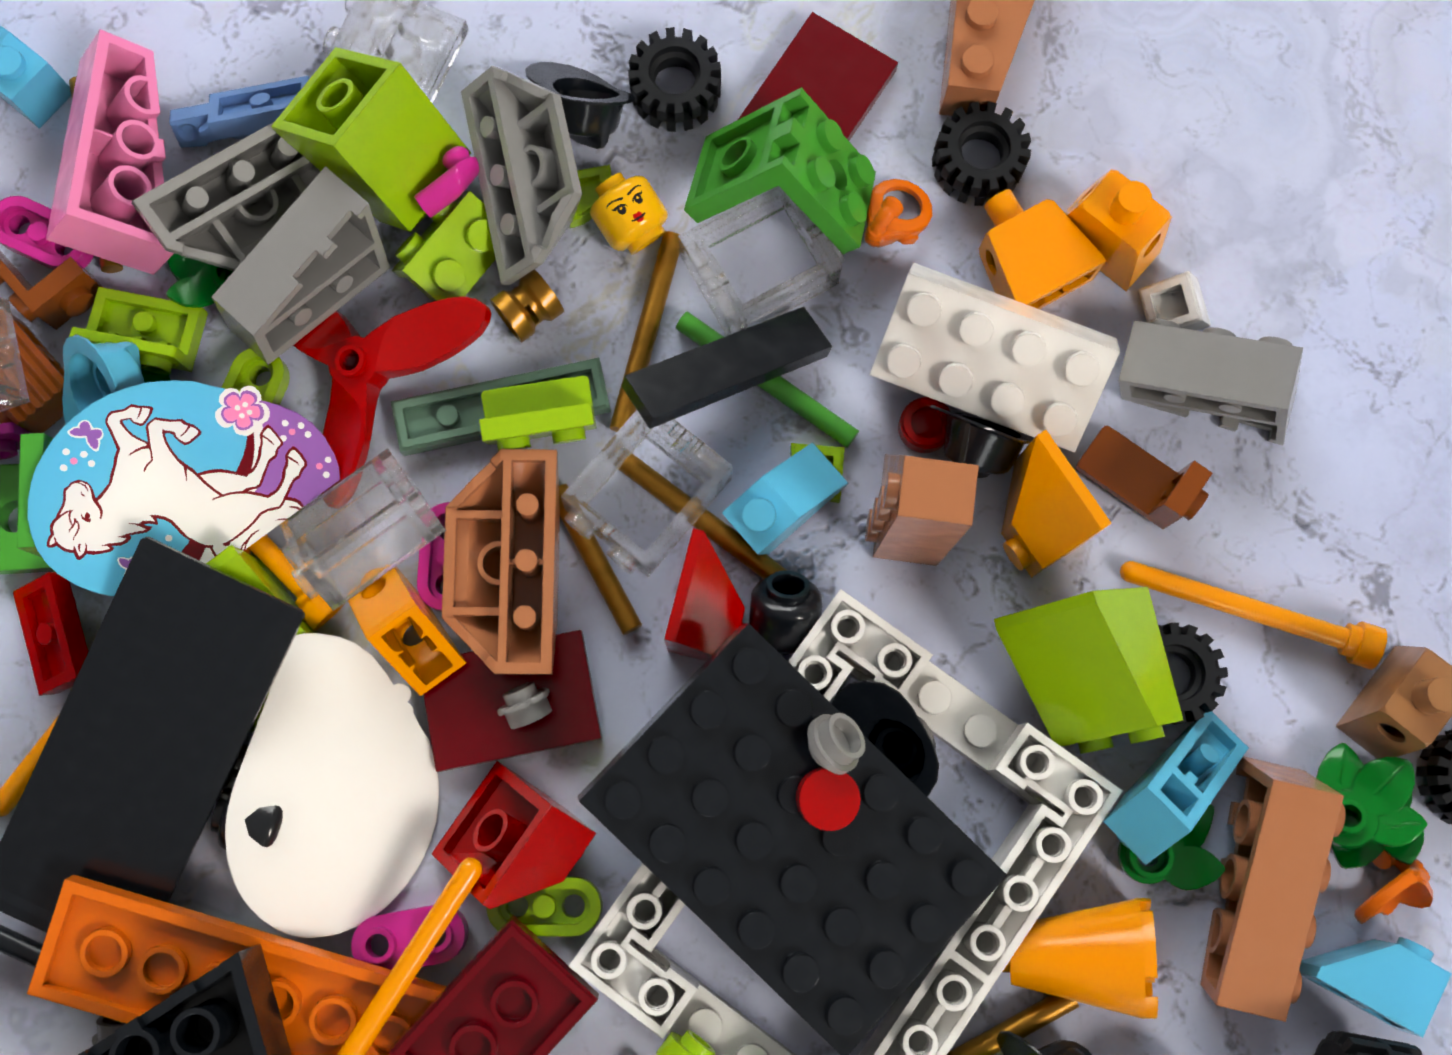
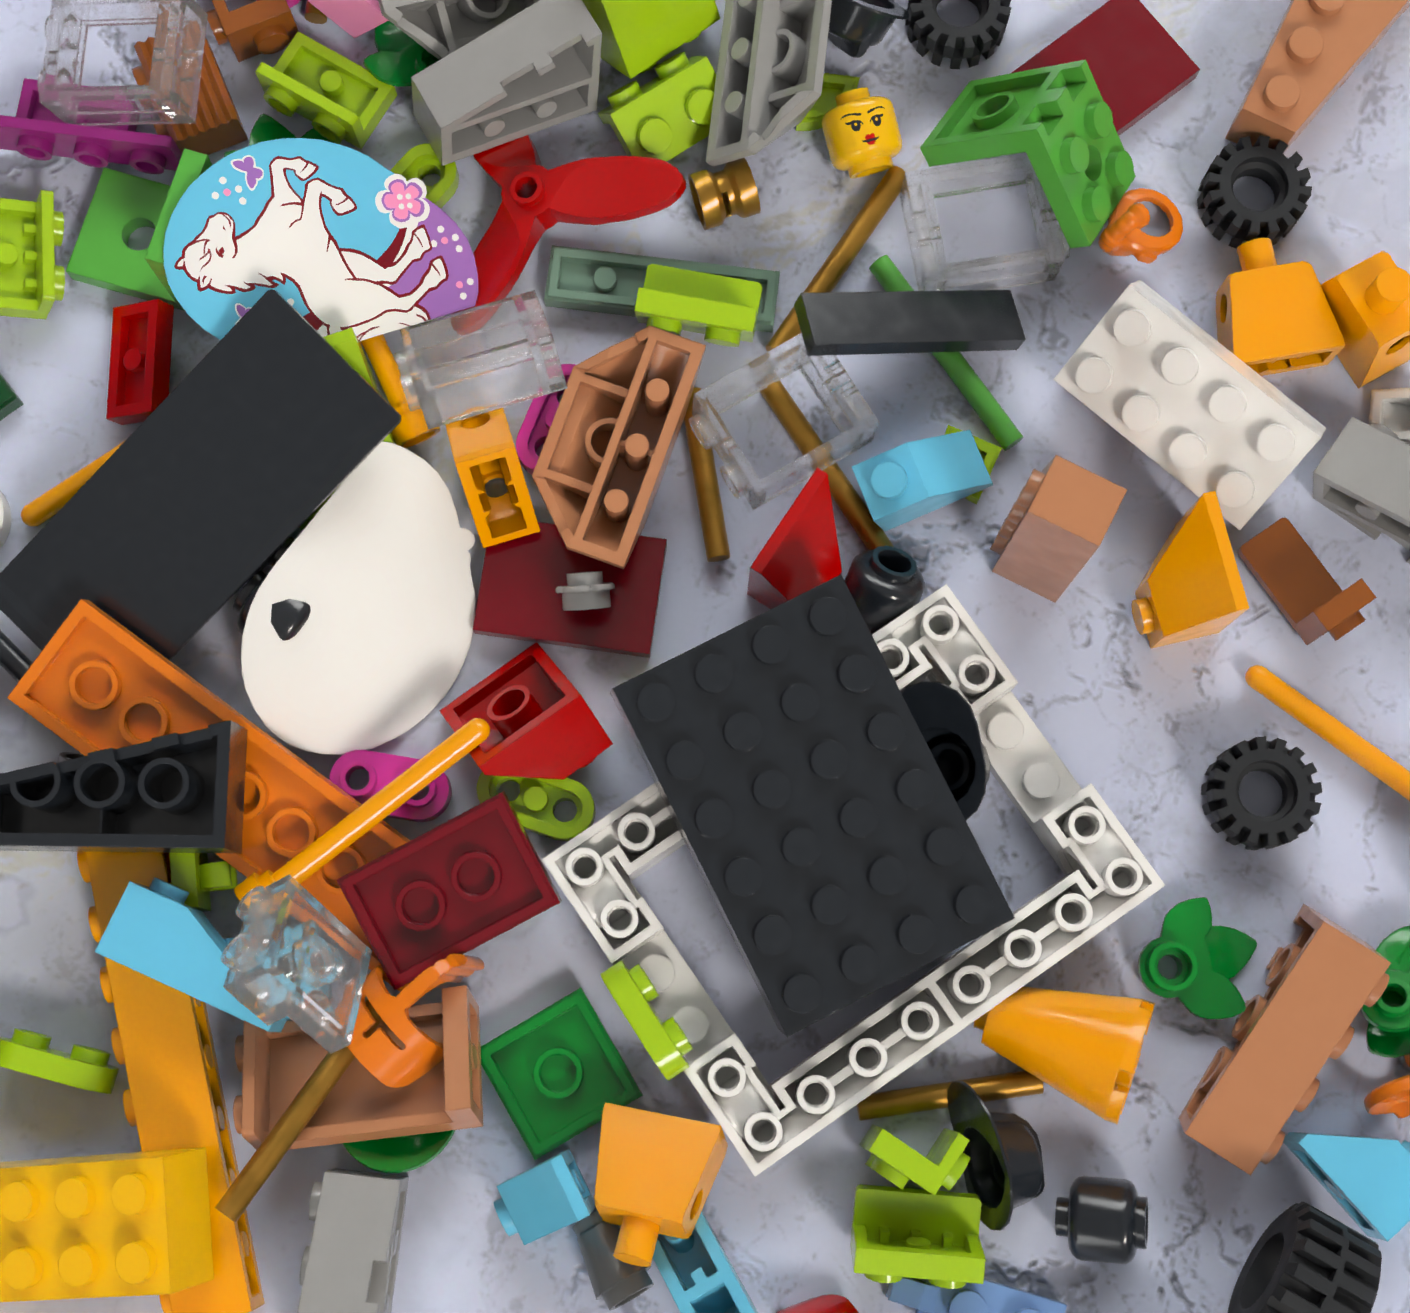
camera: 20 degrees right, 0 degrees up
(96, 371) = (271, 113): medium azure piece -> none
(451, 184) = (690, 43): dark pink arm -> none
(828, 799) = (860, 771): red tile -> none
(835, 742) = (887, 717): light grey plate -> none
(922, 426) = (1097, 450): red tile -> none
(982, 443) = (1152, 493): black piece -> none
(1094, 667) = (1180, 749): lime slope -> none
(1176, 788) = (1223, 903): medium azure slope -> none

